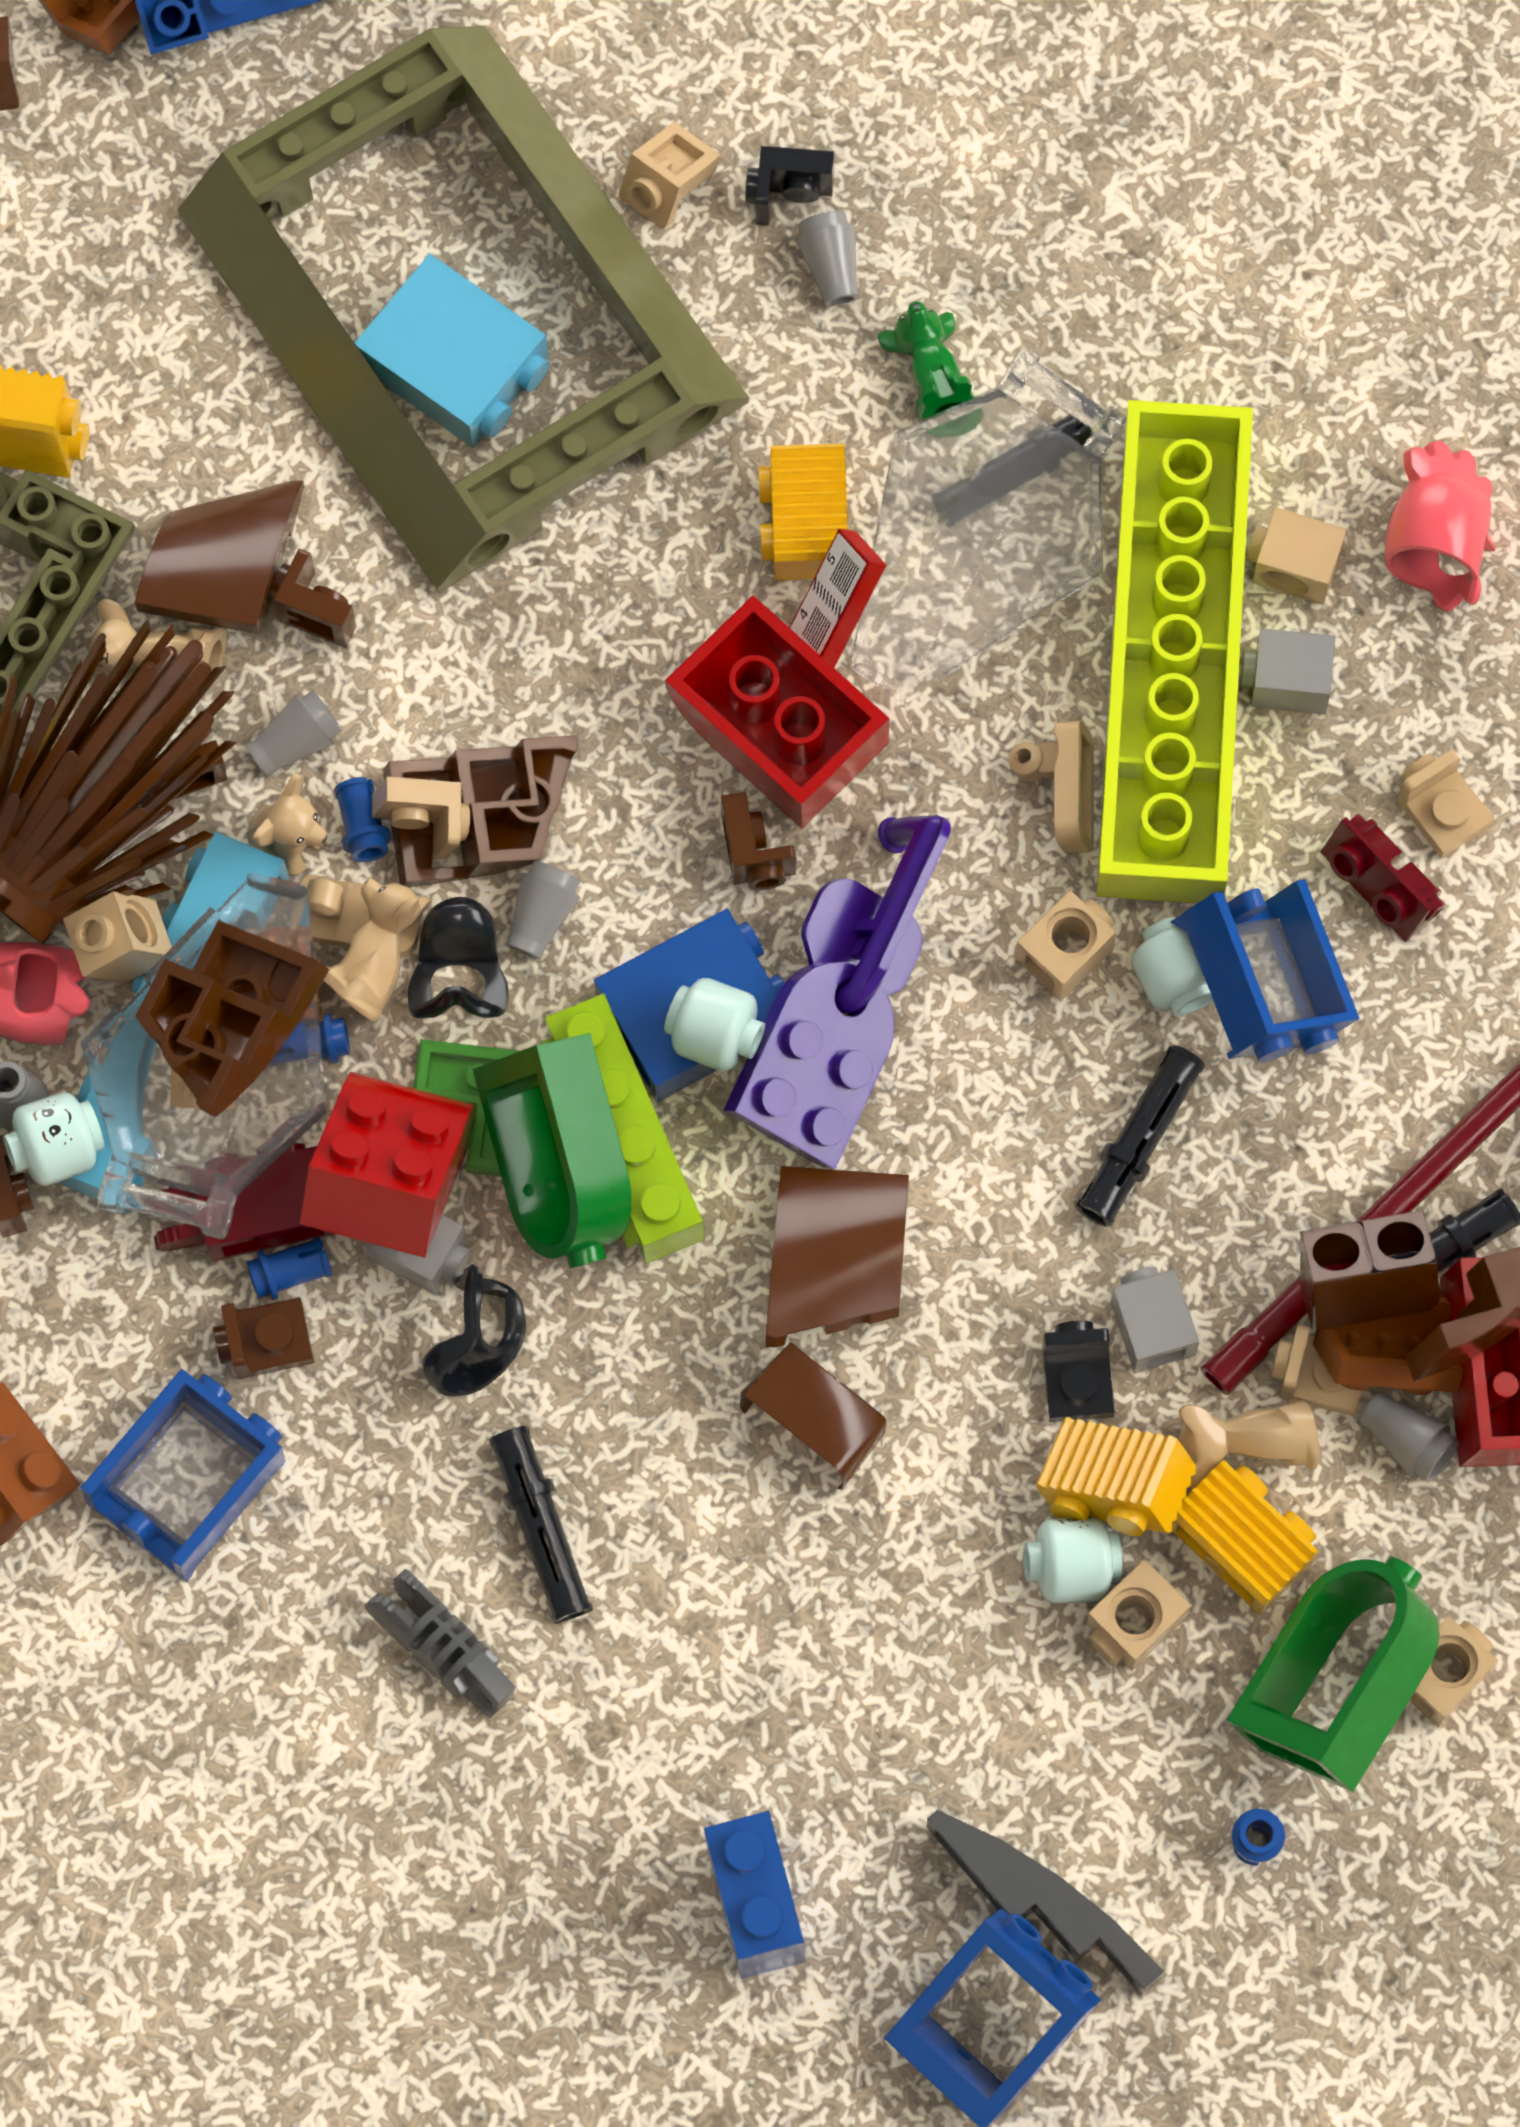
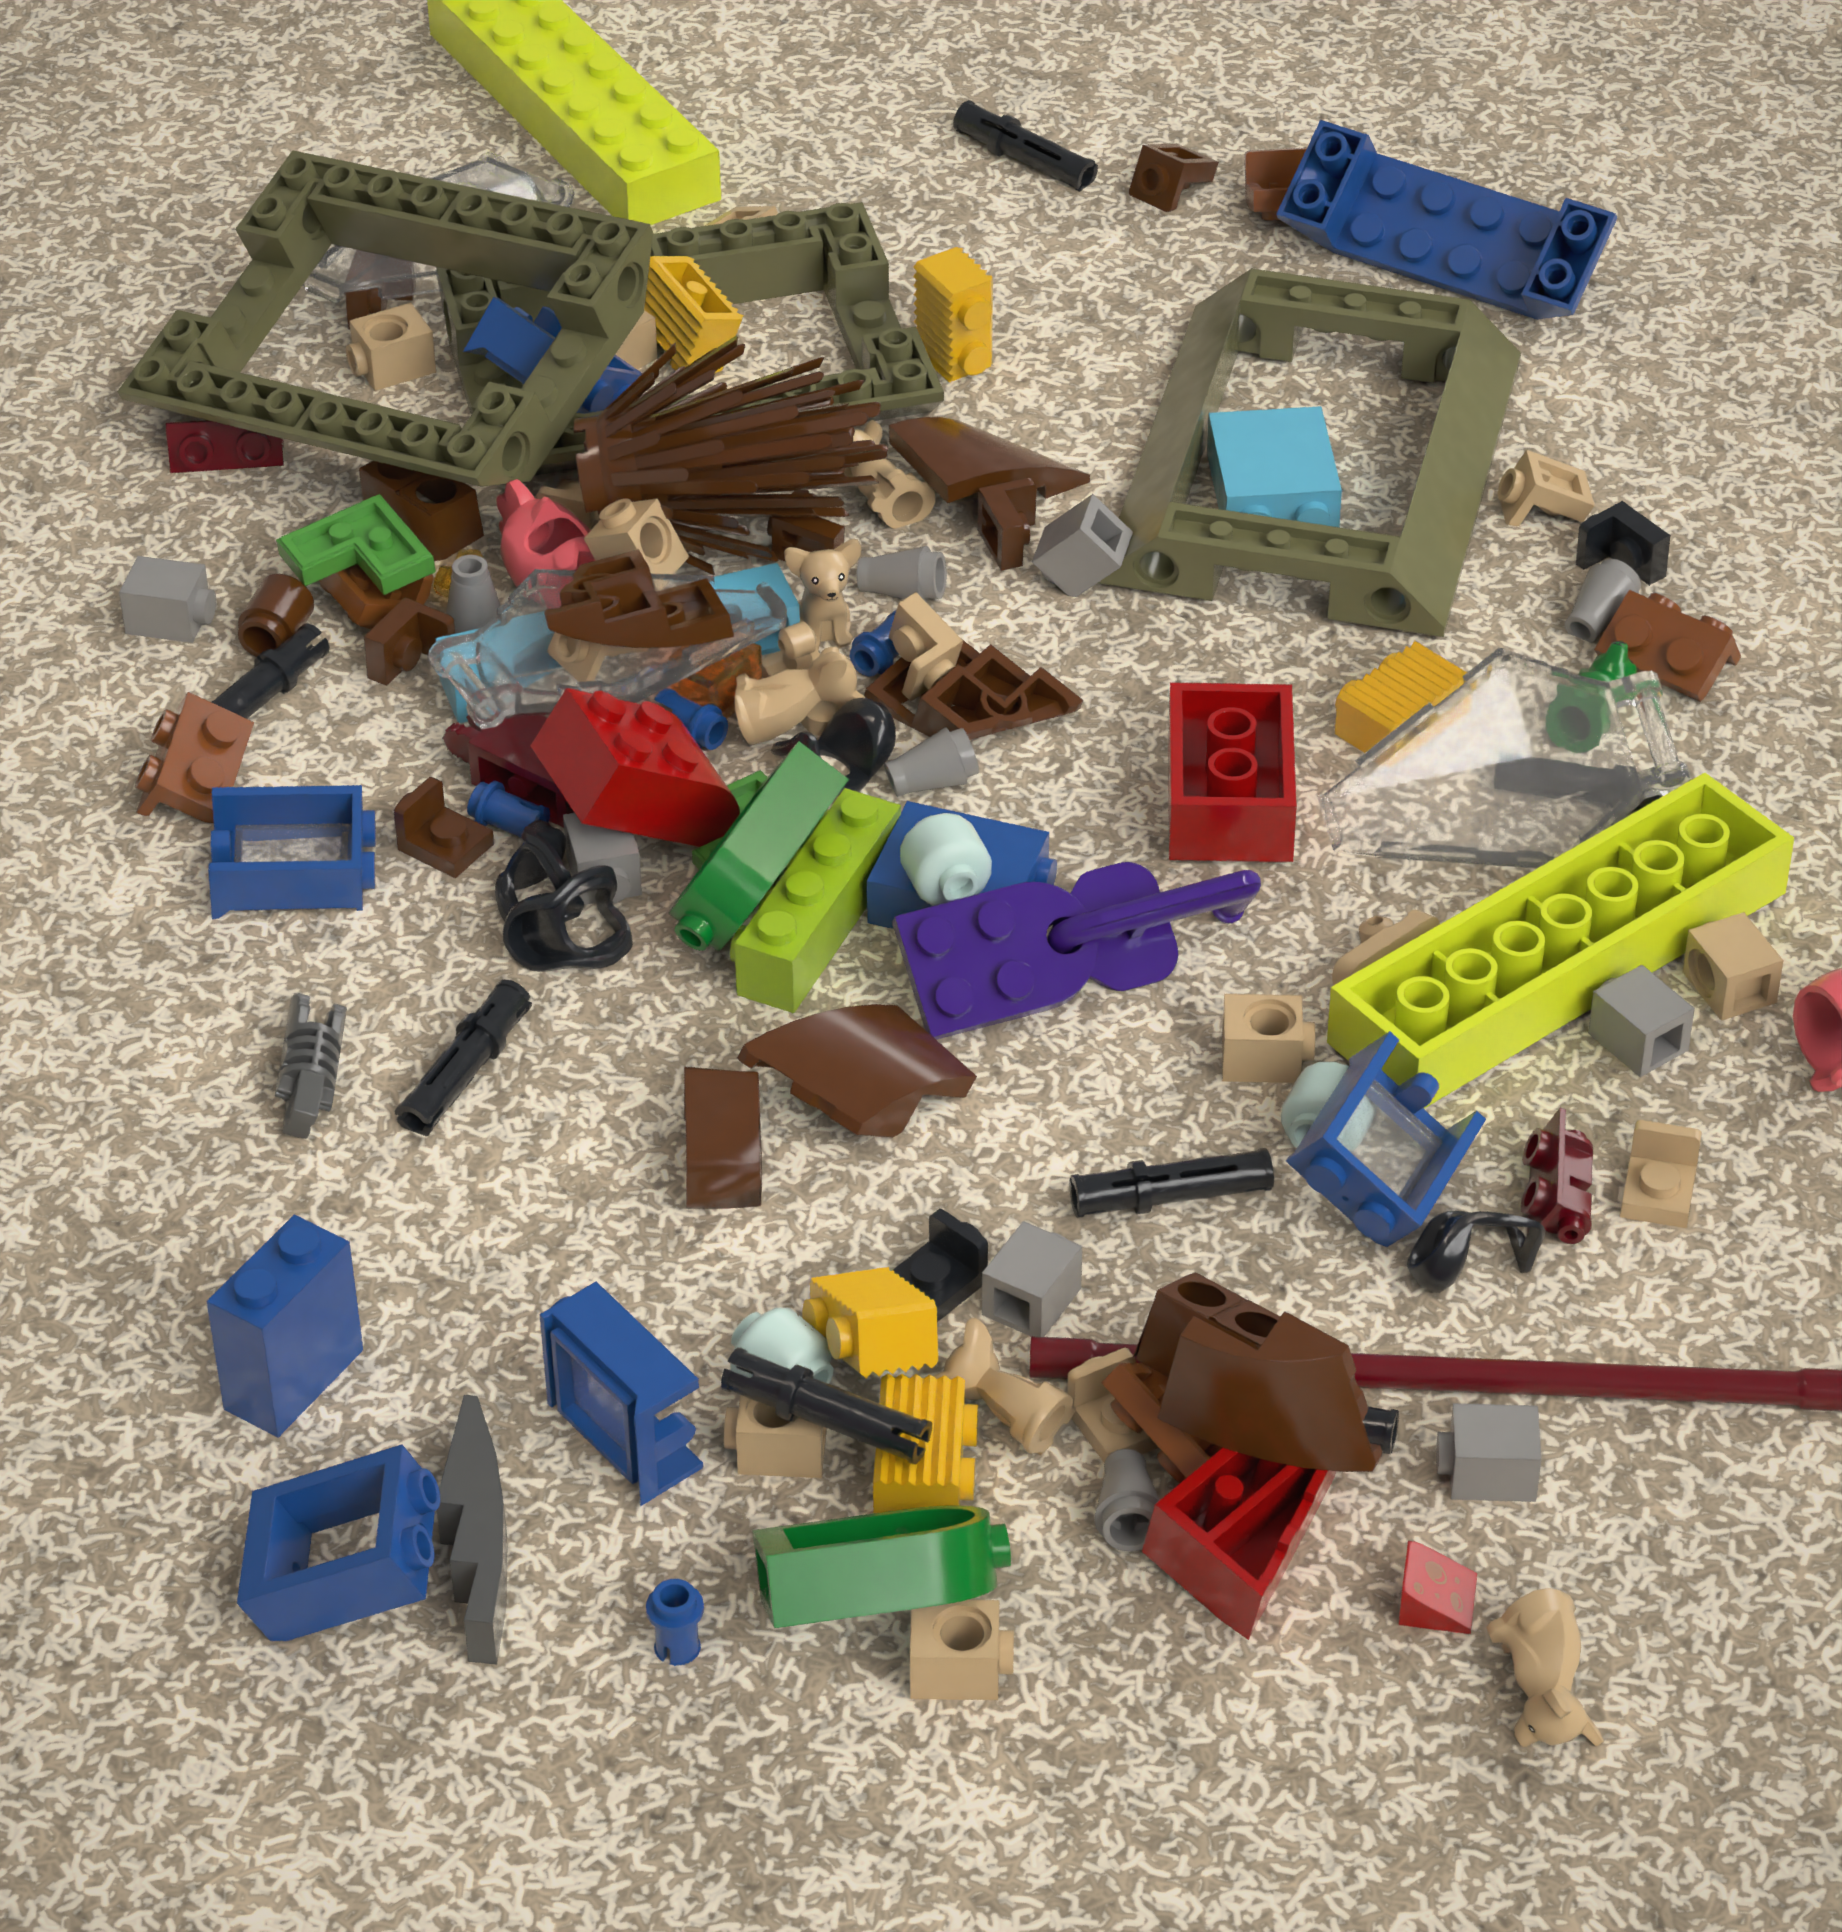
camera: 45 degrees right, 30 degrees down
(54, 1138) = (450, 602): light aqua head -> none
(364, 1300) = (533, 862): none -> black piece
(412, 581) = (1082, 547): none -> light grey brick
(744, 836) = (1117, 825): reddish brown bracket -> none
(838, 595) = (1353, 741): tile -> none
(926, 259) = (1672, 644): none -> dark orange bracket
(1023, 1705) = (611, 1383): none -> blue window
(1179, 1588) = (800, 1395): none -> black pin
(1385, 1011) = (1445, 1242): none -> black piece

